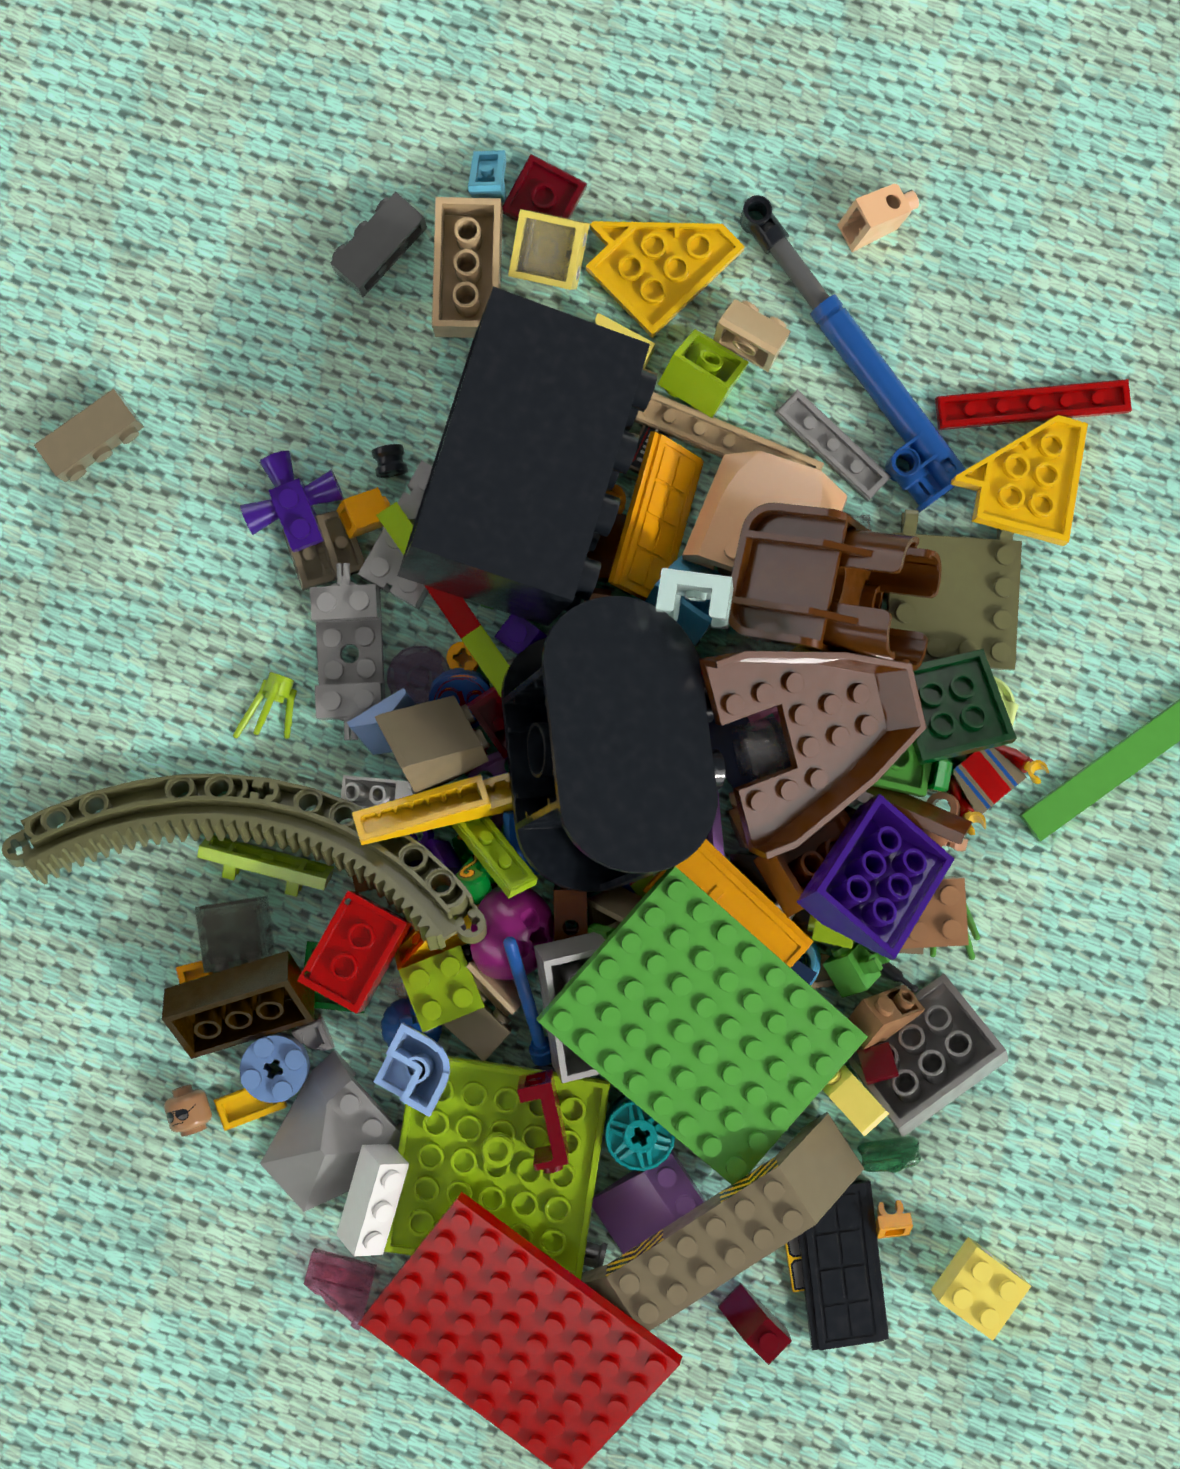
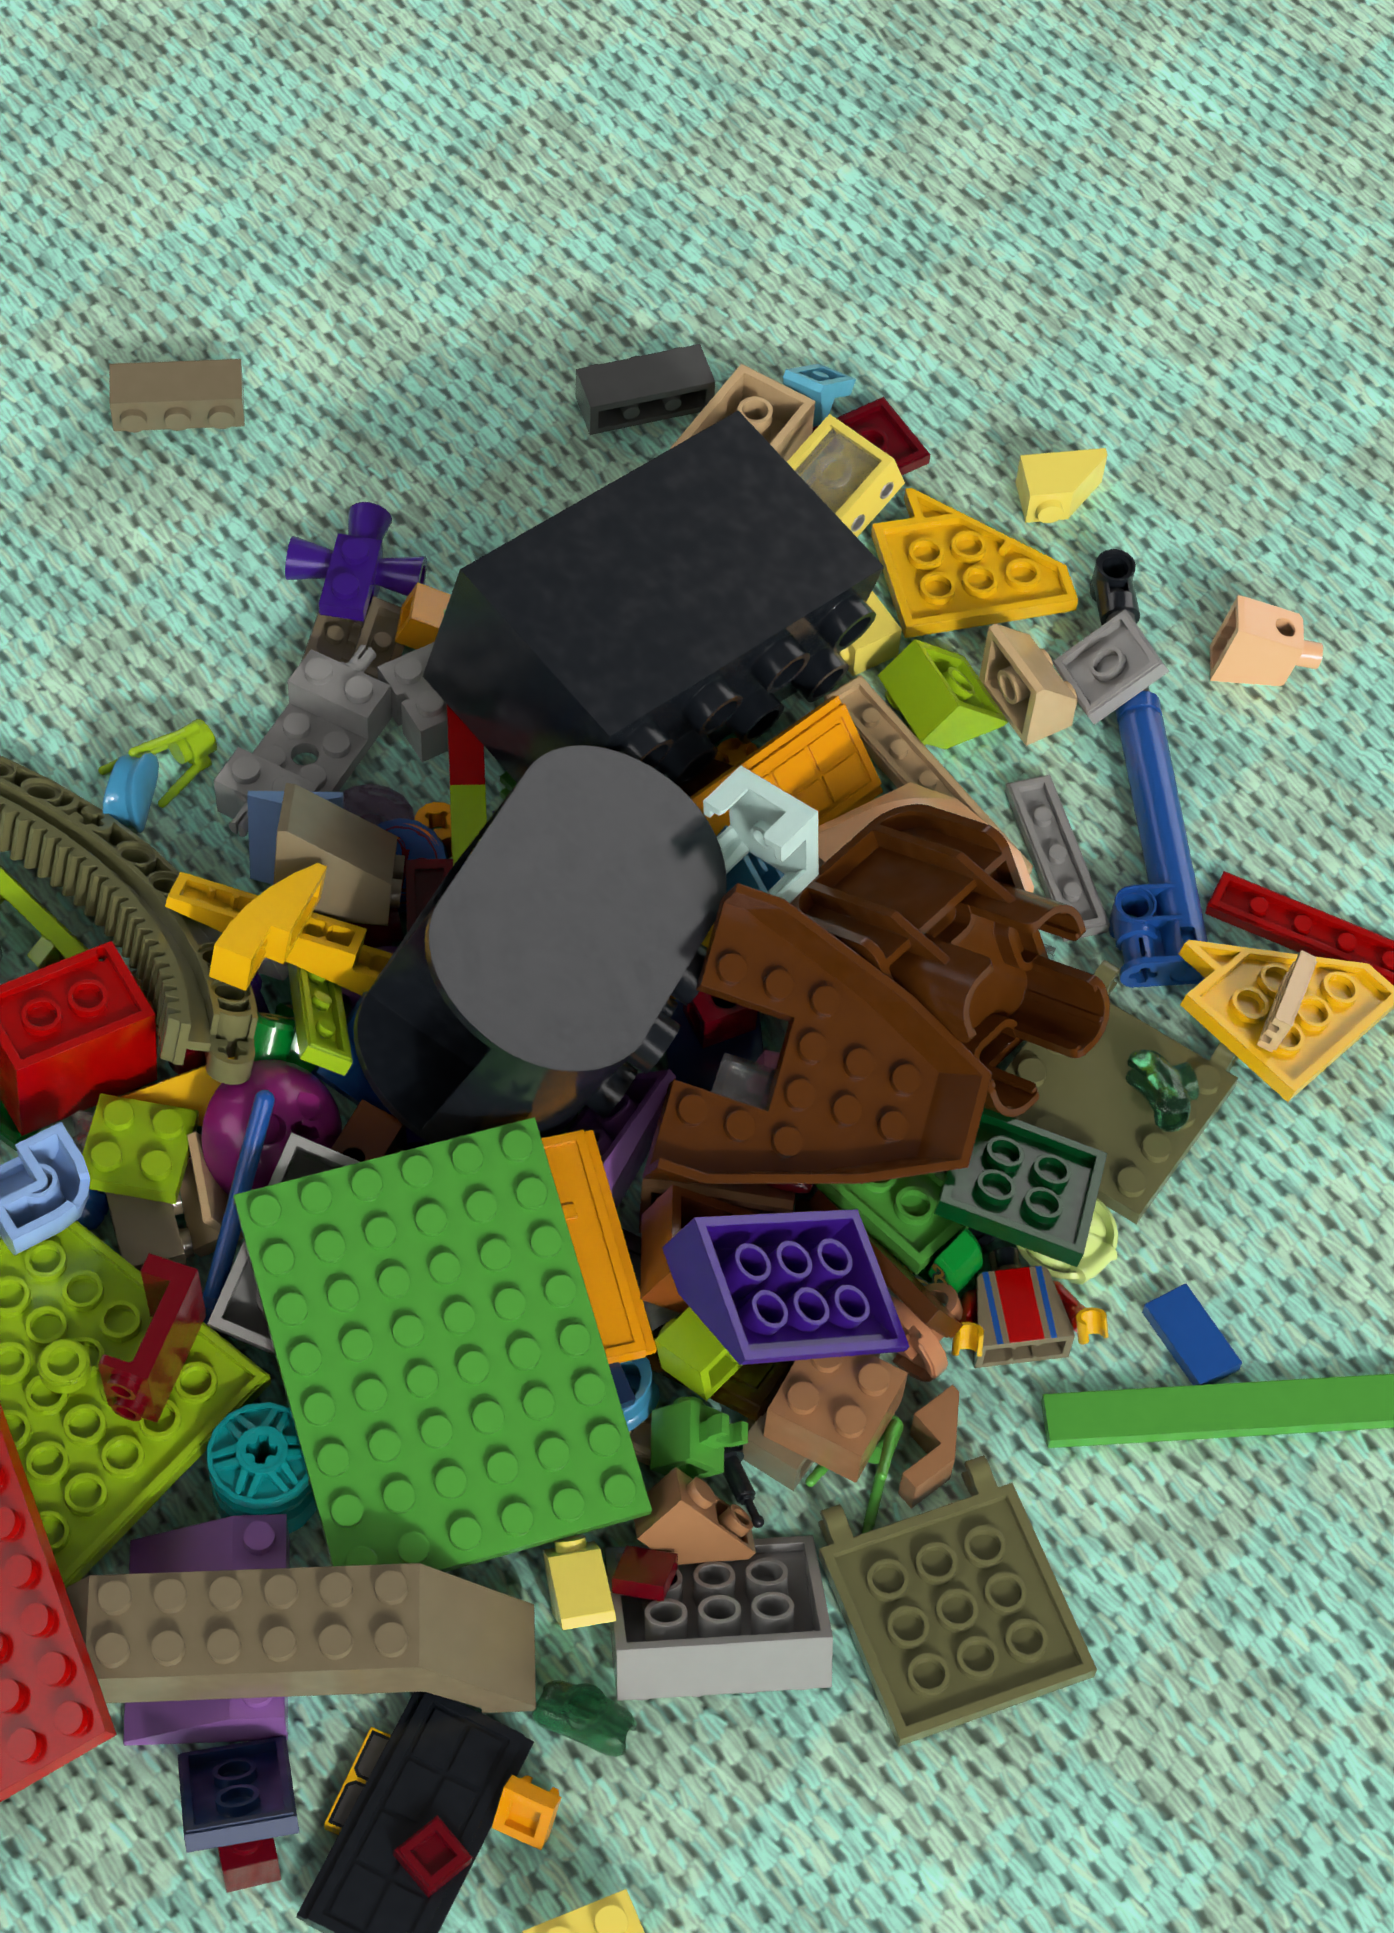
camera: 30 degrees right, 30 degrees down
(270, 751) = (131, 790): none -> dark azure piece
(435, 830) = (267, 927): none -> yellow slope
(679, 160) = (1058, 482): none -> light yellow slope
(749, 1323) = (237, 1794): none -> dark blue tile
(795, 290) = (1110, 666): none -> light grey tile
(862, 1280) = (432, 1856): none -> dark red tile
(979, 872) = (936, 1433): none -> medium nougat slope
(993, 583) = (1164, 1087): none -> clear green piece
(1038, 487) = (1287, 1001): none -> tan tile
(1045, 973) = (954, 1609): none -> olive plate
(1081, 726) = (1191, 1336): none -> blue tile

